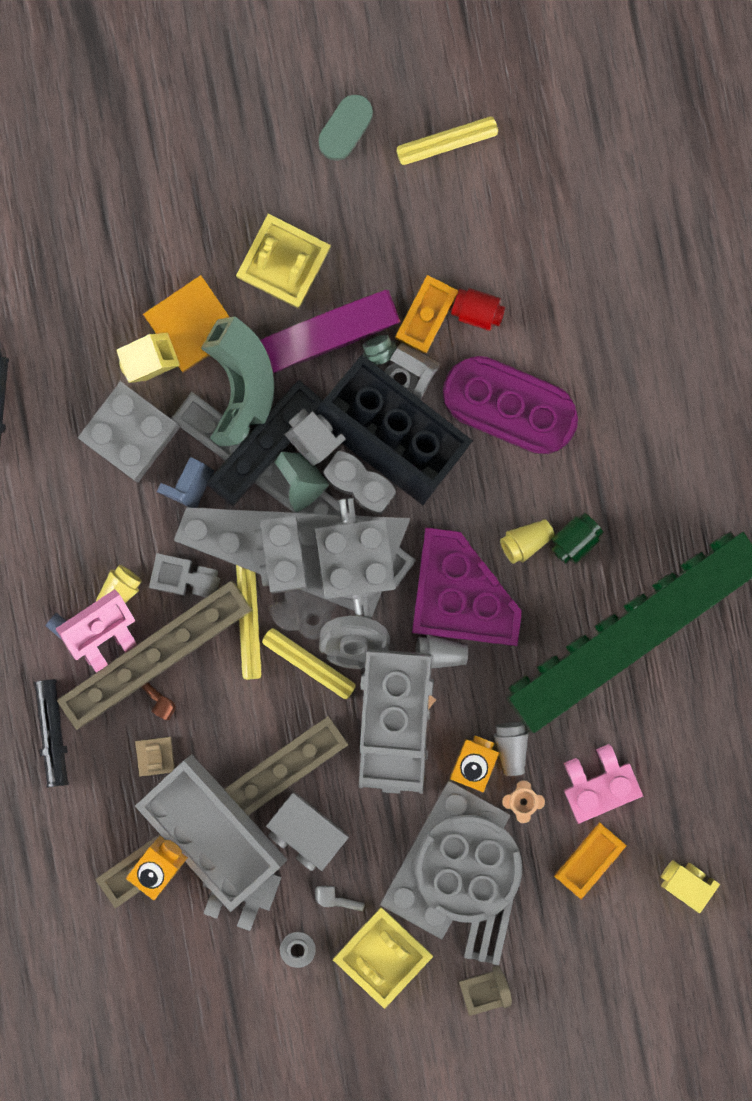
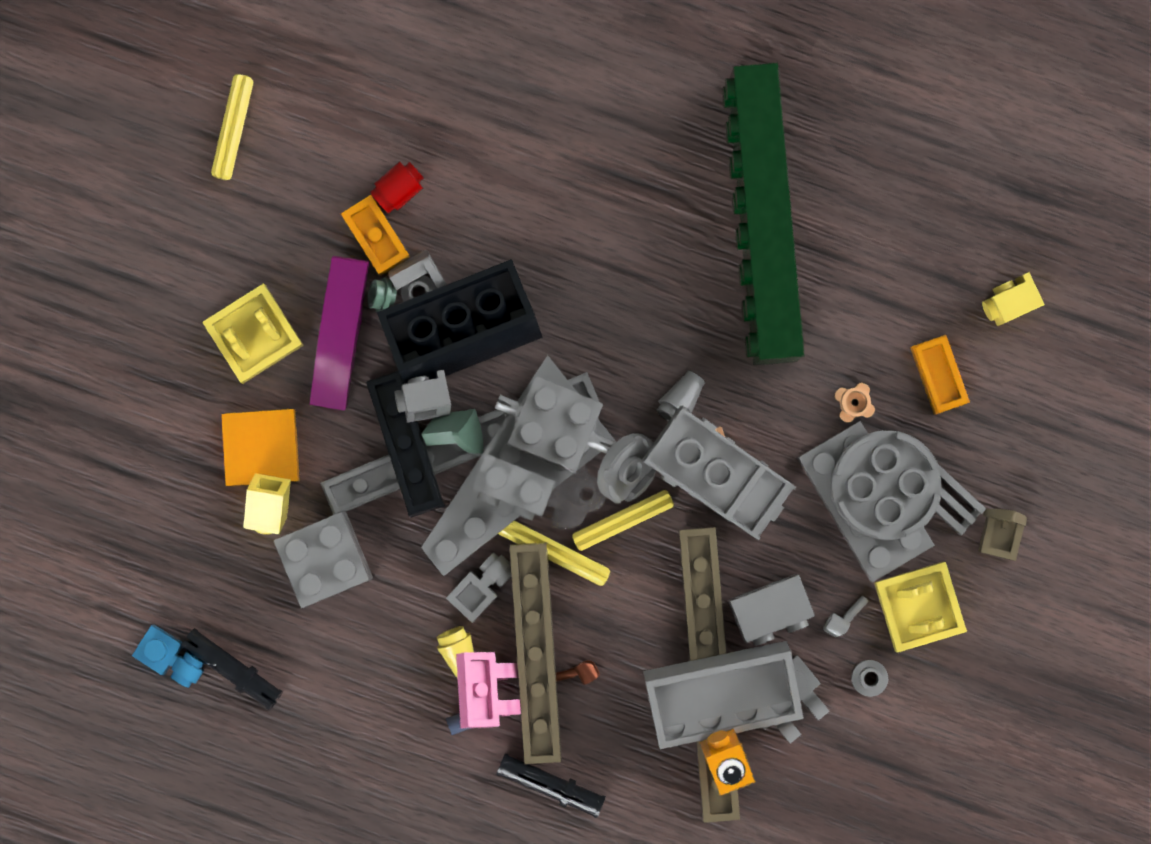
camera: 55 degrees left, 0 degrees up
(155, 756) = (625, 704): tan tile -> none
(190, 485) = (403, 533): sand blue tile -> none
(249, 376) = (335, 422): sand green arch -> none
(345, 127) = (167, 209): sand green tile -> none
(368, 488) = (479, 385): light grey brick -> none
(461, 595) = (640, 349): magenta plate -> none
(475, 763) = (797, 425): light orange brick -> none
(510, 405) = (499, 209): magenta tile -> none
(512, 747) = (799, 383): light grey cone -> none
(525, 541) = (627, 265): light yellow cone -> none
(576, 539) = (651, 219): dark green brick -> none
(603, 791) = (886, 327): bright pink plate -> none

